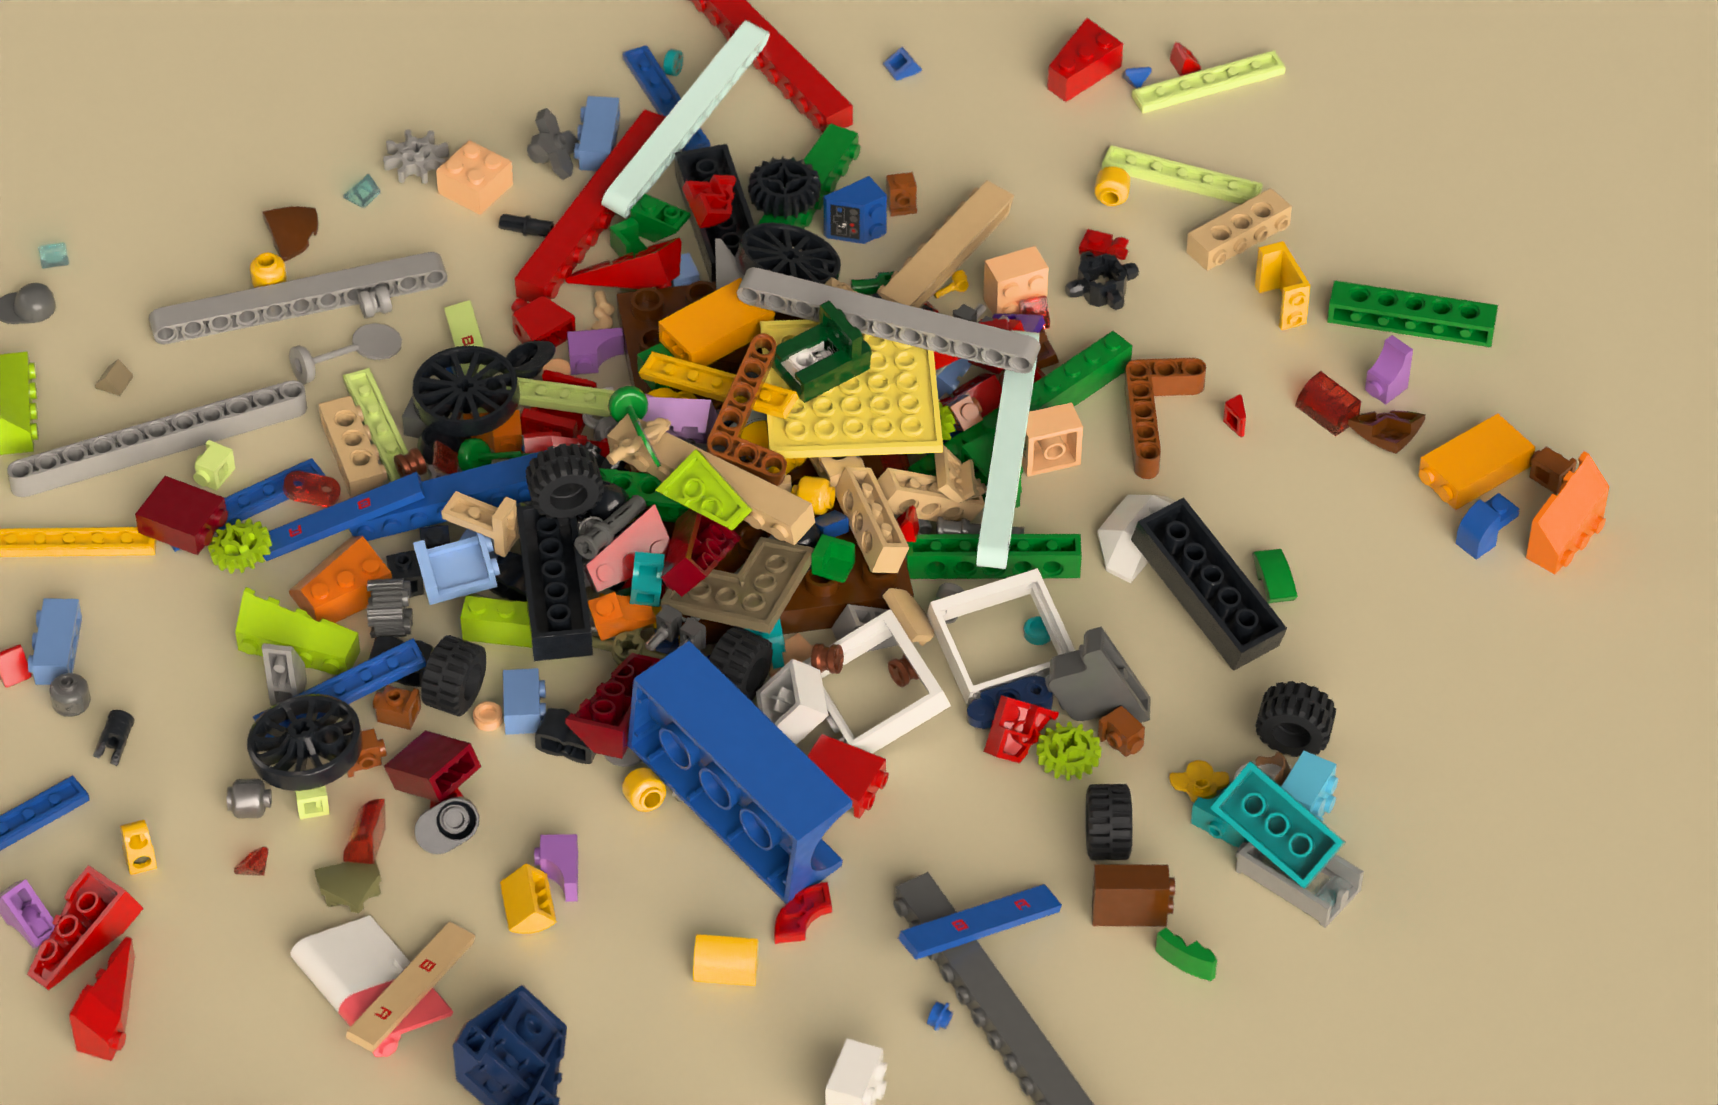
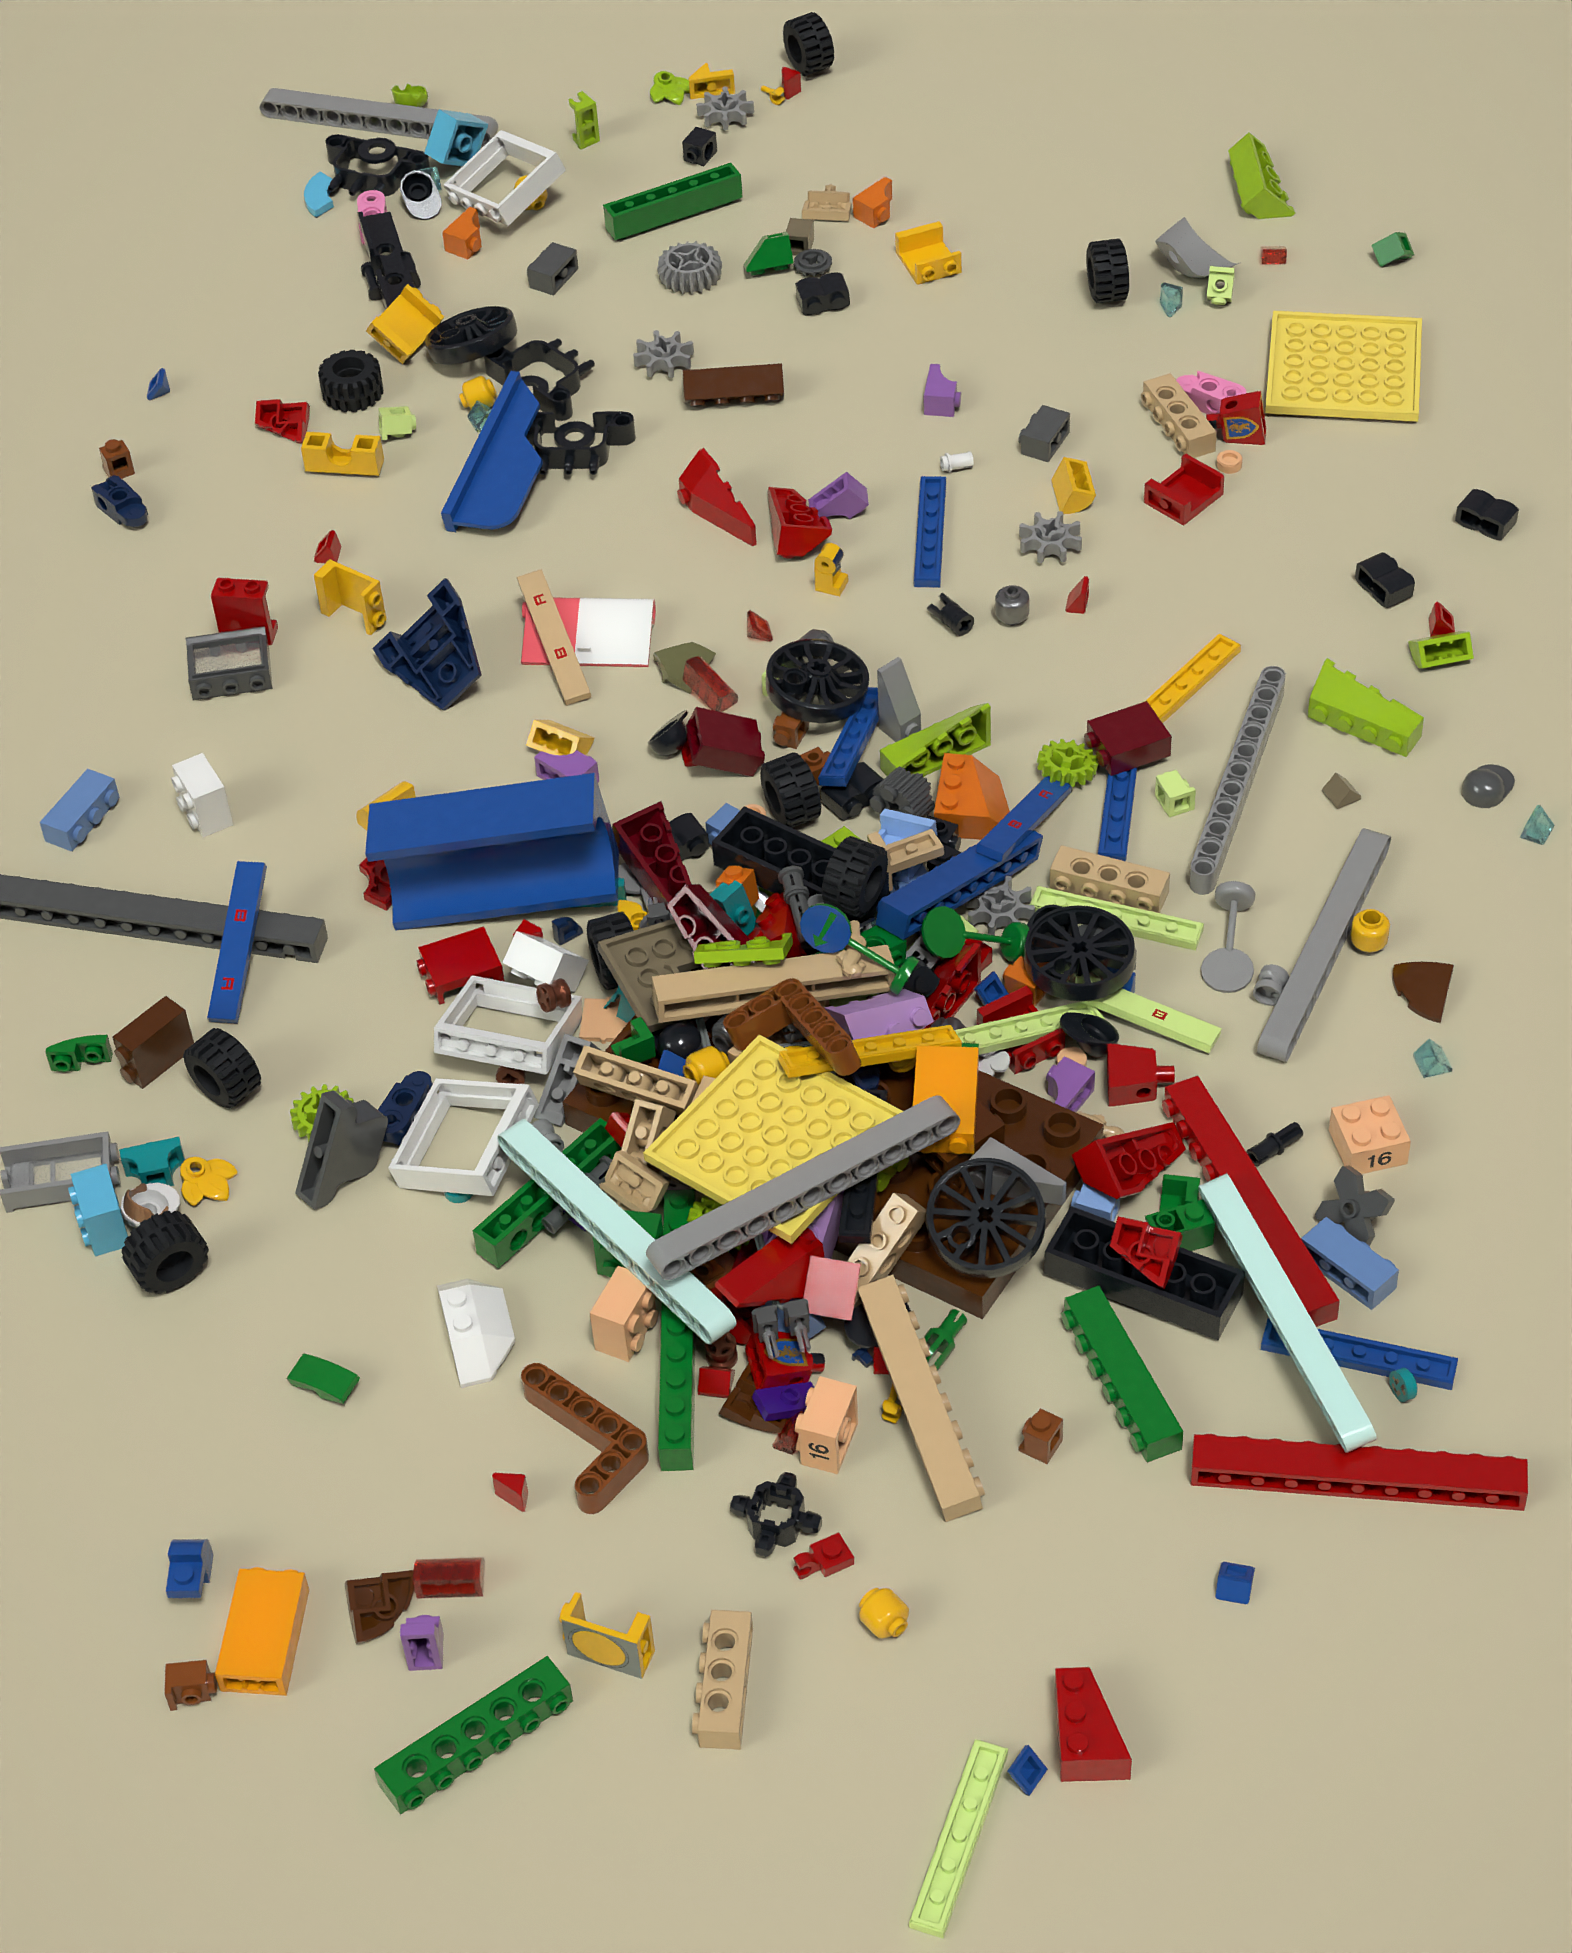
camera: 135 degrees right, 0 degrees up
(56, 639) = (1076, 626): medium blue brick -> none
(311, 490) = (1091, 833): clear red plate -> none
(410, 463) = (1044, 891): copper wheel -> none
(415, 156) = (1440, 1115): light grey gear -> none
(444, 459) = (1020, 906): clear red slope -> none
(768, 190) = (1117, 1328): black gear -> none
(822, 355) = (808, 1112): dark green brick -> none
(856, 212) = (1037, 1370): blue slope -> none
(909, 615) = (548, 1082): tan slope -> none
(940, 1016) = (207, 890): blue plate -> none
(1016, 728) = (375, 1084): red slope -> none
(1122, 731) = (290, 1158): dark orange brick -> none
(1182, 175) = (849, 1701): yellowish green tile -> none
(1184, 60) = (1008, 1837): red slope -> none
(1208, 584) = (349, 1293): black brick -> none
(1278, 825) = (81, 1142): teal brick -> none
(1569, 517) = (116, 1627): orange wedge -> none

